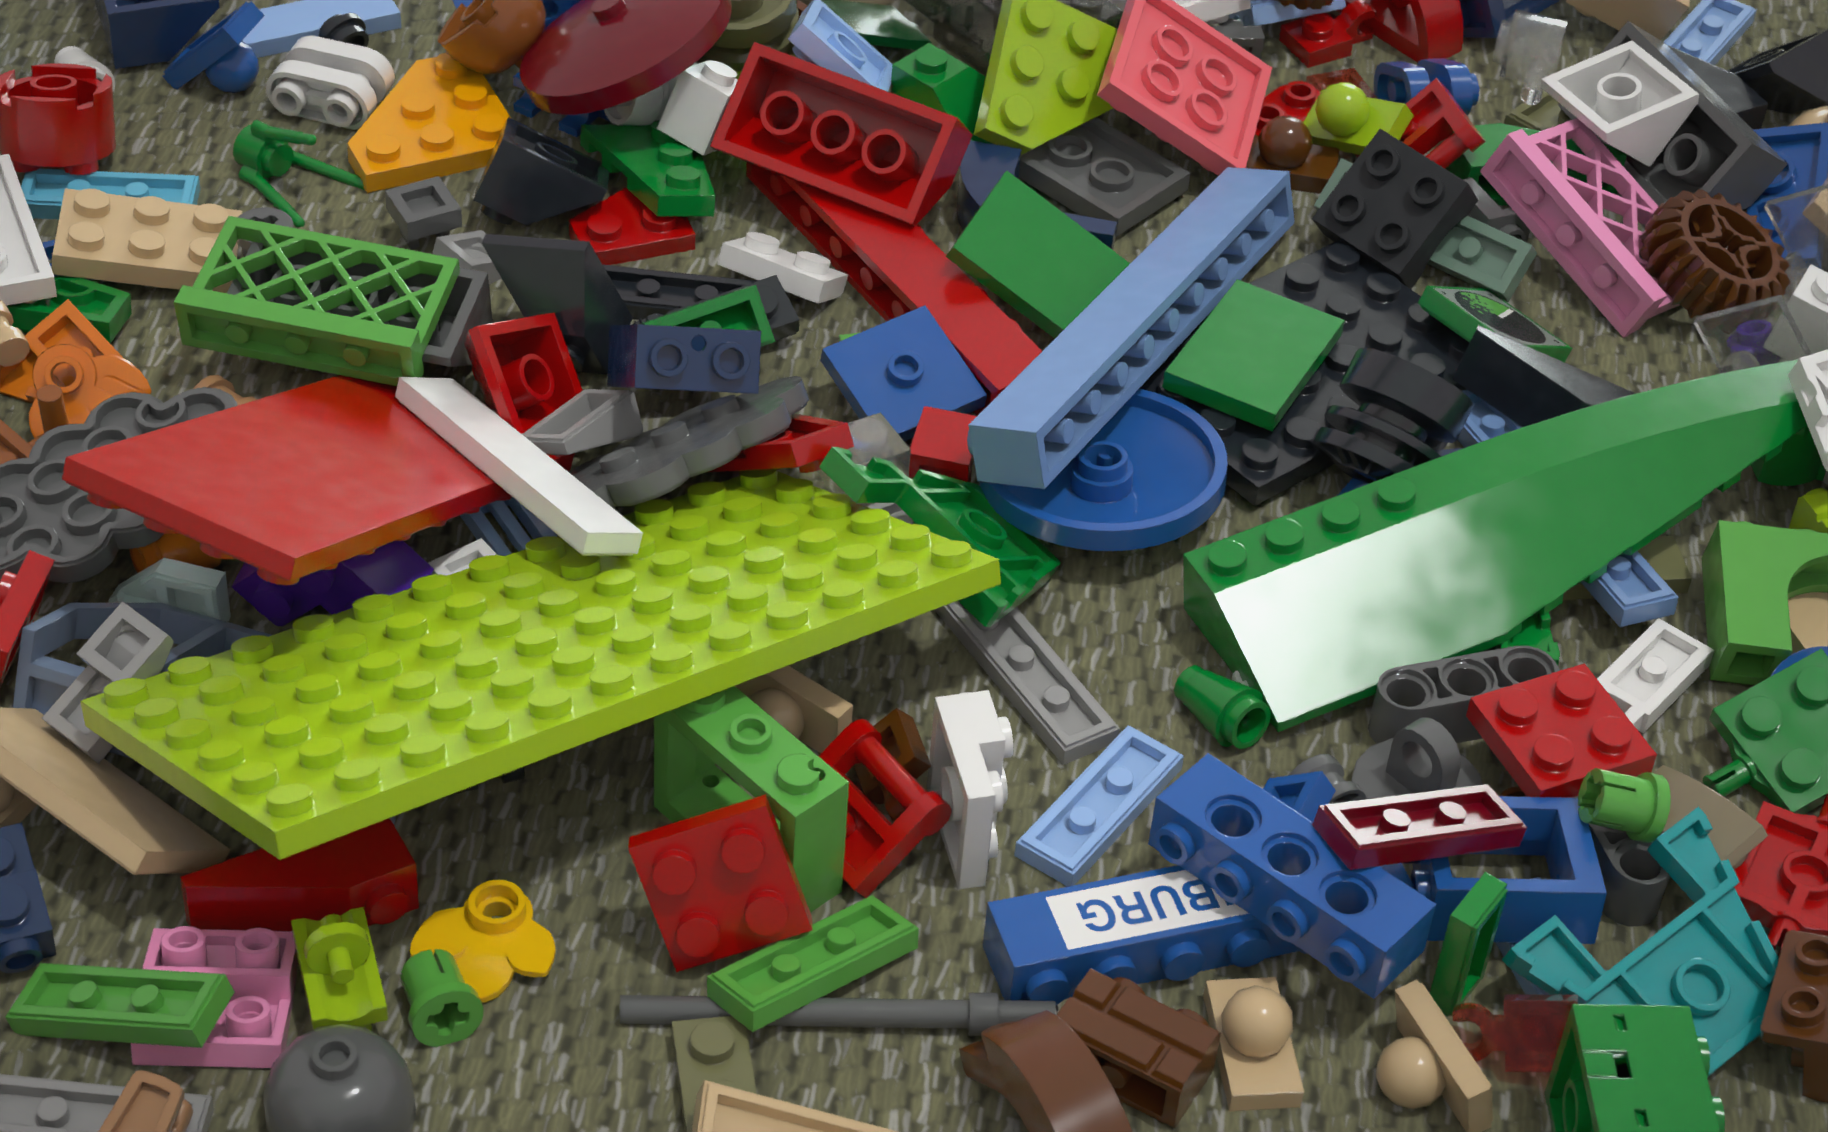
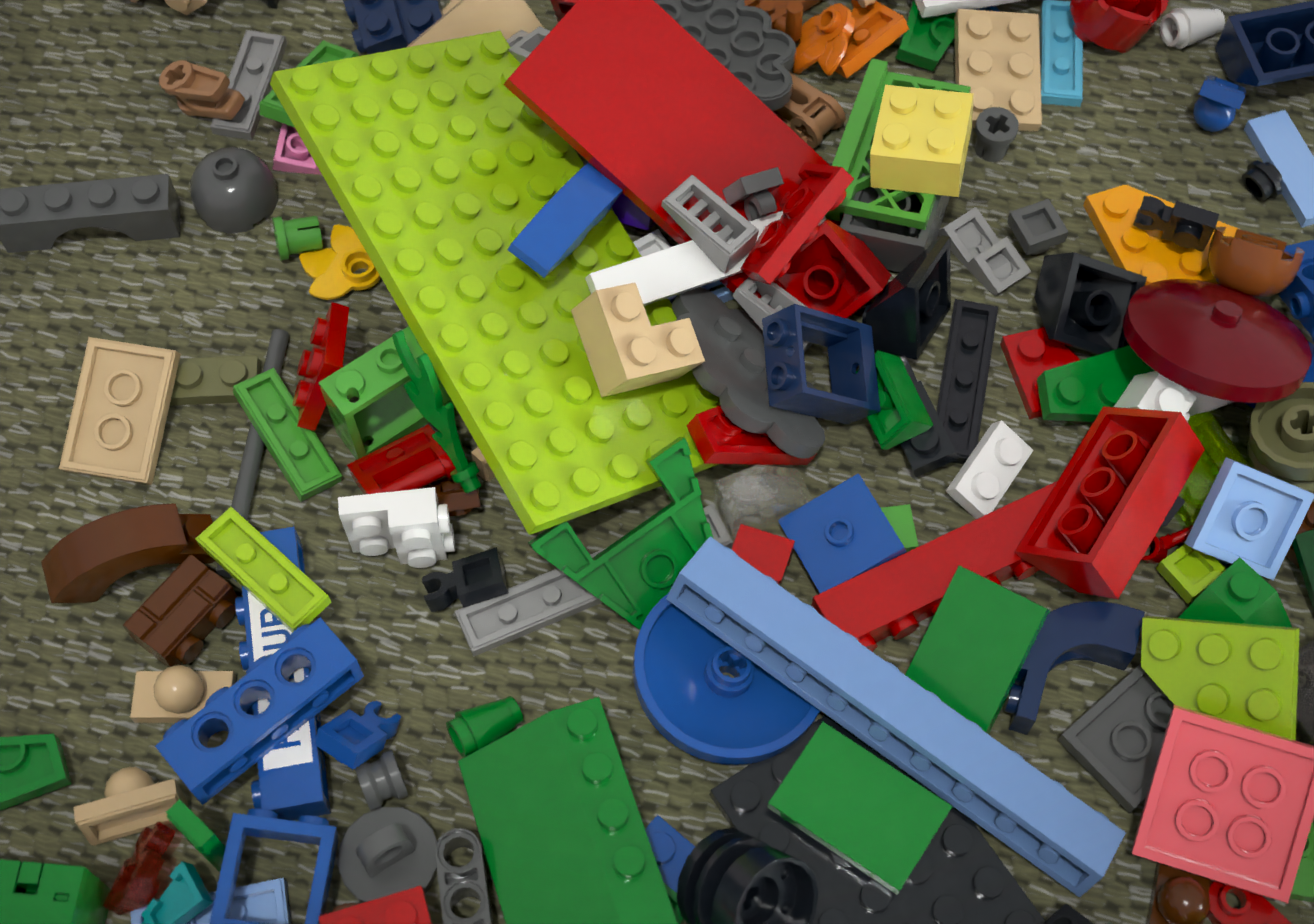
camera: 100 degrees right, 20 degrees up
(266, 153) = (1107, 139): green plant -> none
(330, 82) = (1186, 152): white brick -> none
(339, 970) = (301, 185): lime hips -> none
(342, 237) = (921, 140): none -> light yellow brick
(409, 407) = (755, 193): none -> dark grey tile
(436, 78) = (1182, 224): none -> black plate
(461, 356) = (802, 210): none -> red wing
(484, 430) = (712, 244): none -> light grey slope
(493, 559) = (565, 220): none -> blue slope
(699, 489) = (624, 345): none -> tan brick
(820, 694) = (427, 397): none -> green piece
(1030, 732) = (472, 581): none -> black plate
(1068, 920) = (263, 570): none -> lime tile
(1099, 806) = (408, 632): light blue tile -> none
(1418, 826) = (270, 800): dark red tile -> none

